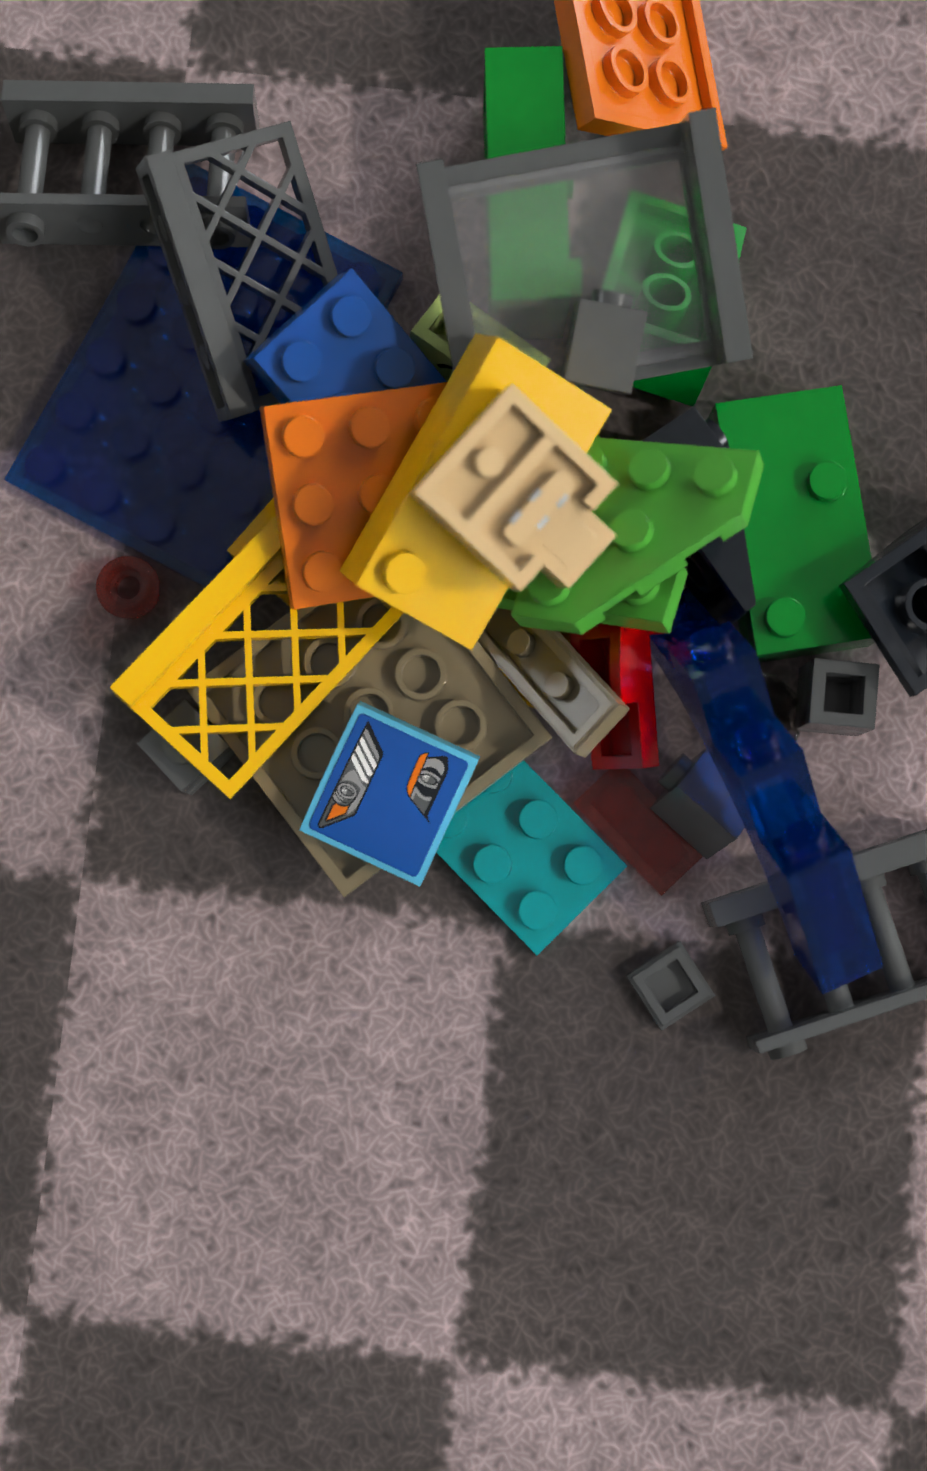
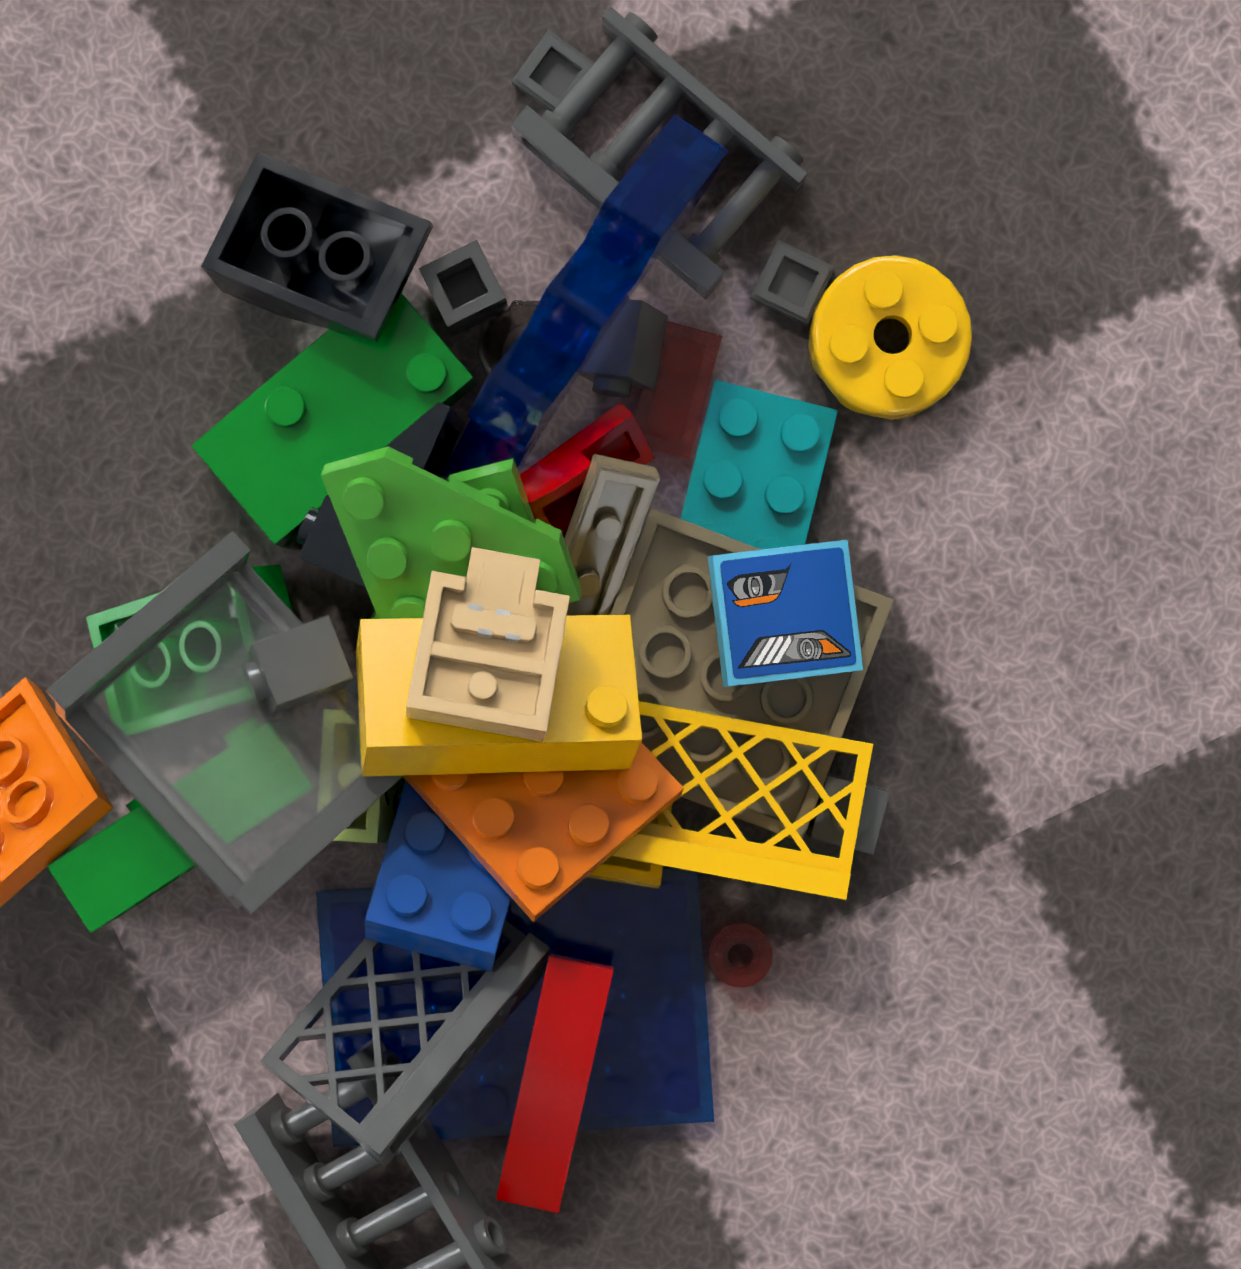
camera: 120 degrees left, 5 degrees up
(120, 360) = (554, 1082): none -> red slope
(525, 1033) = (863, 374): none -> yellow plate

